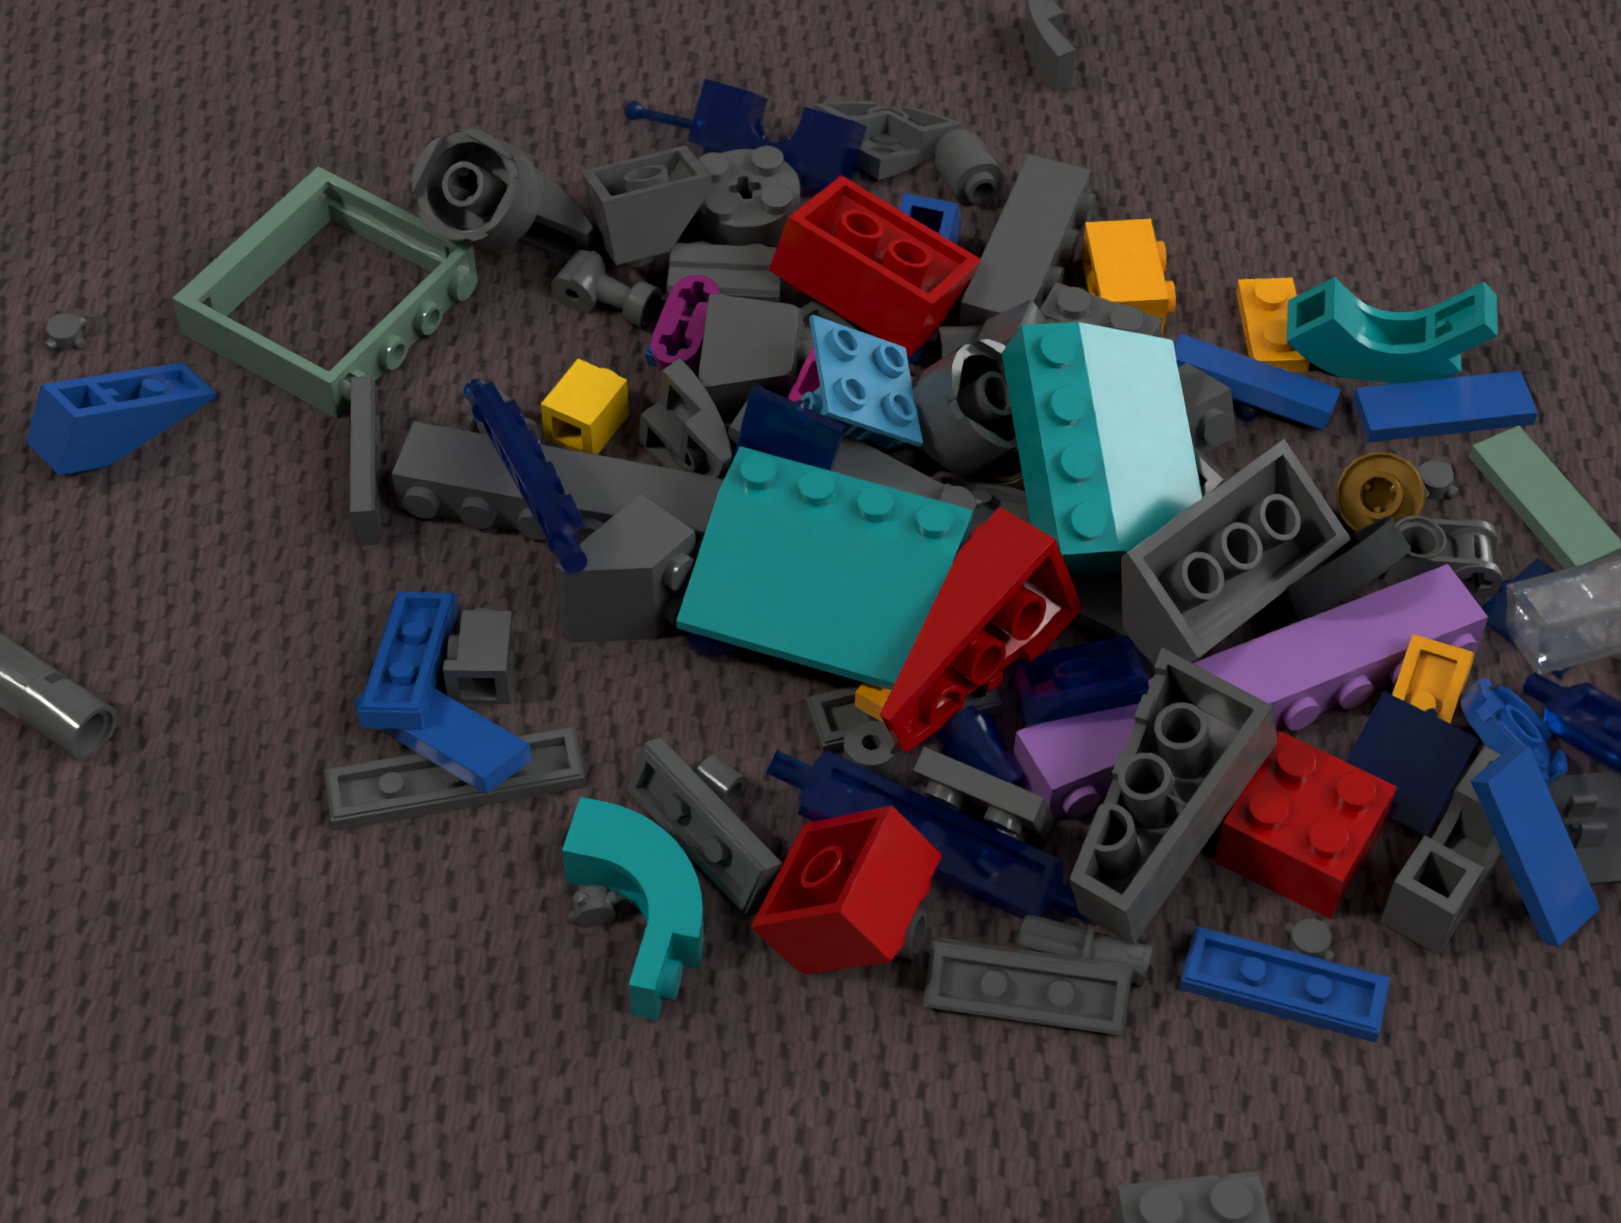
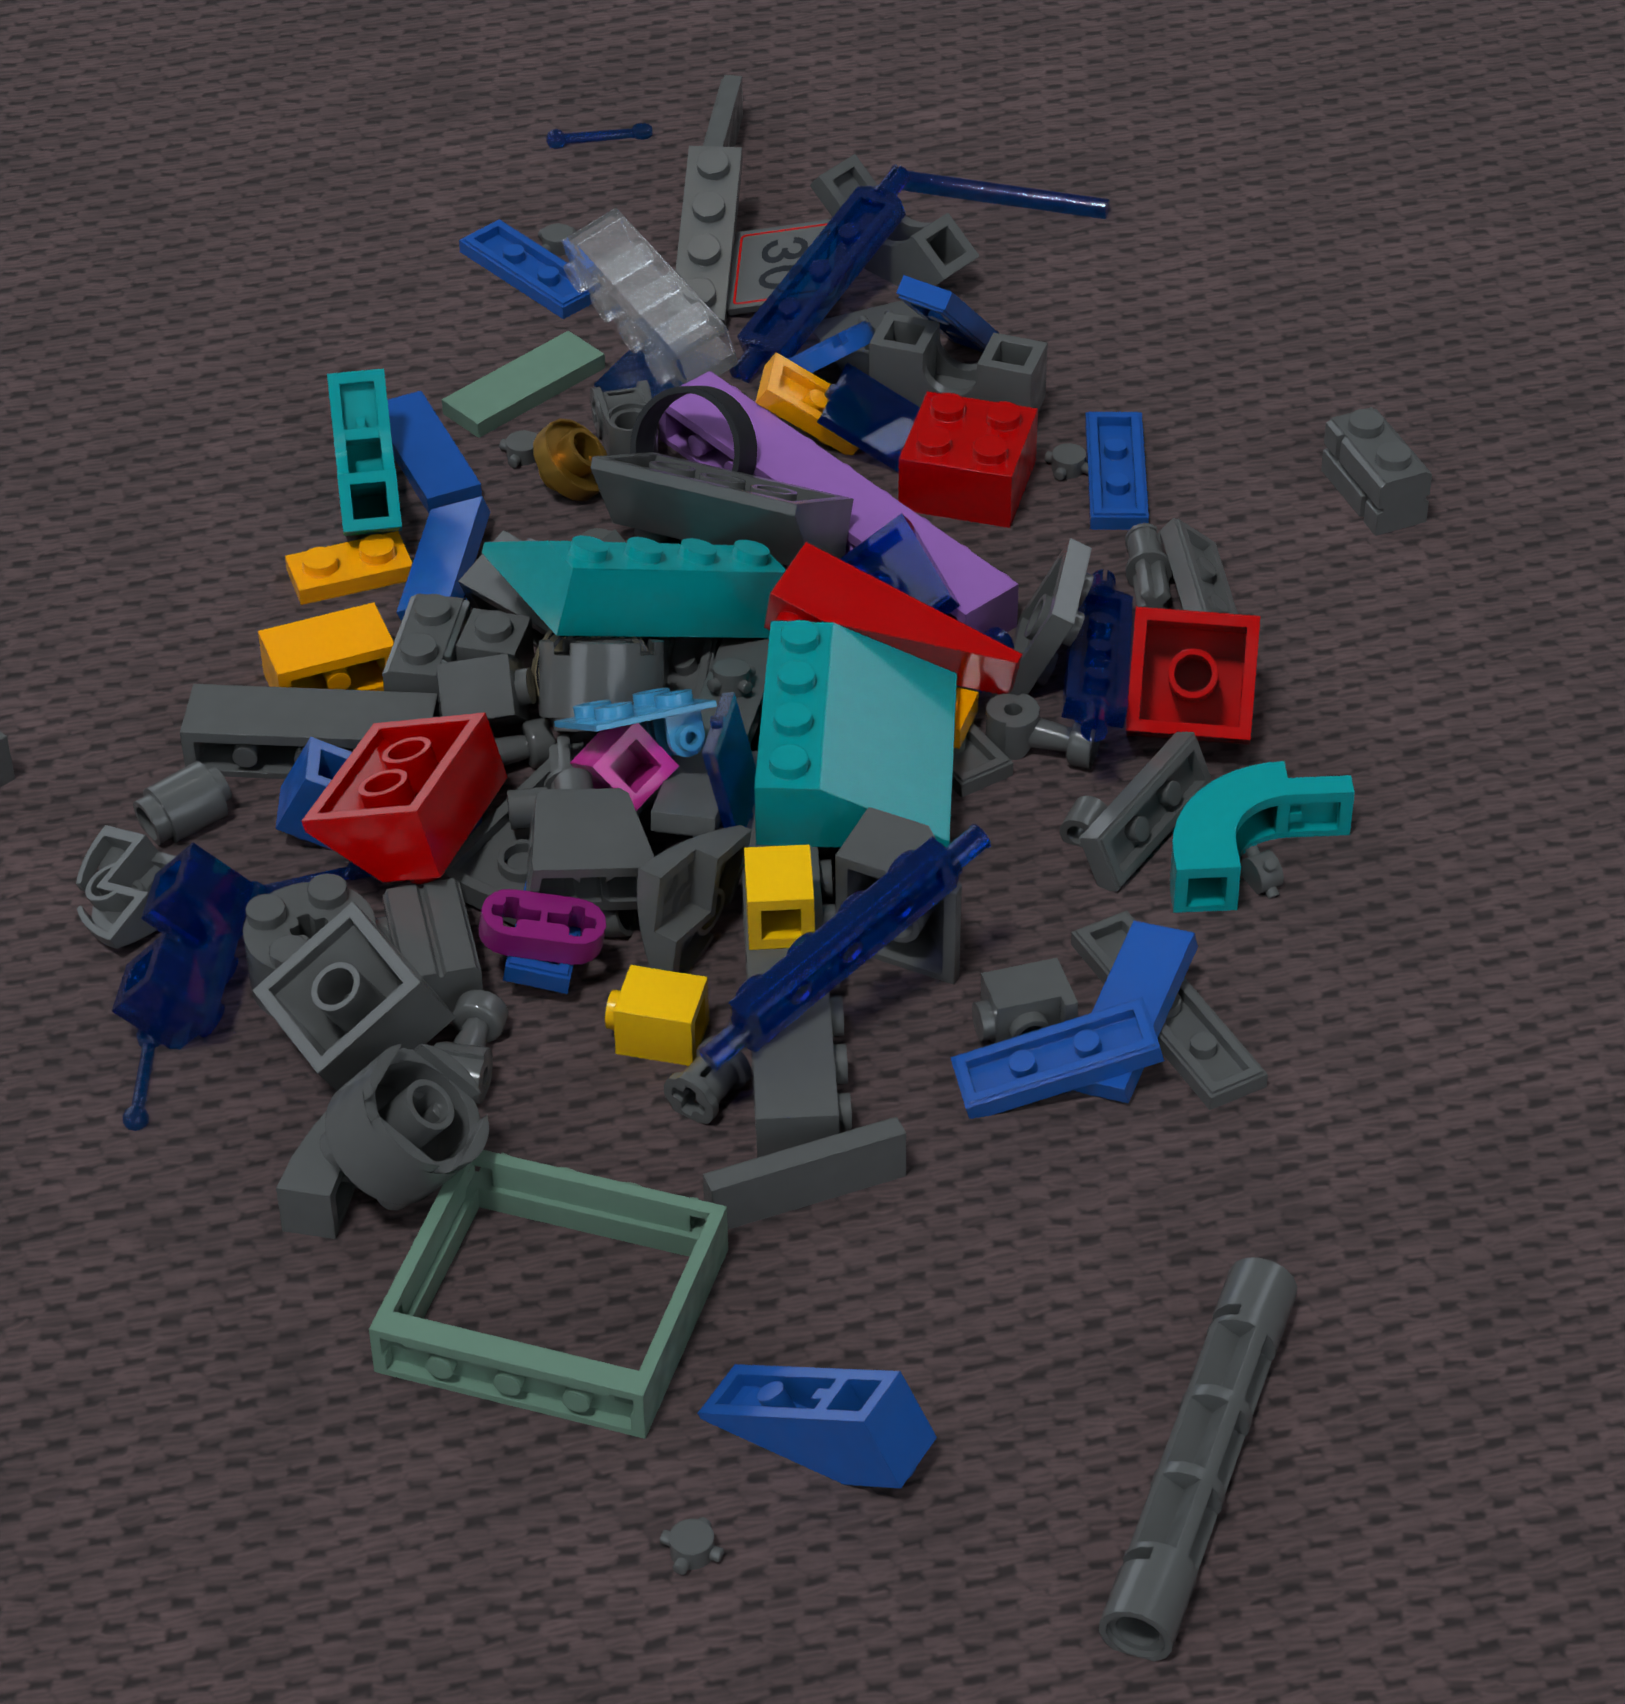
camera: 105 degrees left, 10 degrees down
(636, 462) = (778, 895): none -> yellow brick
(1169, 791) = (1013, 491): dark grey wedge -> none

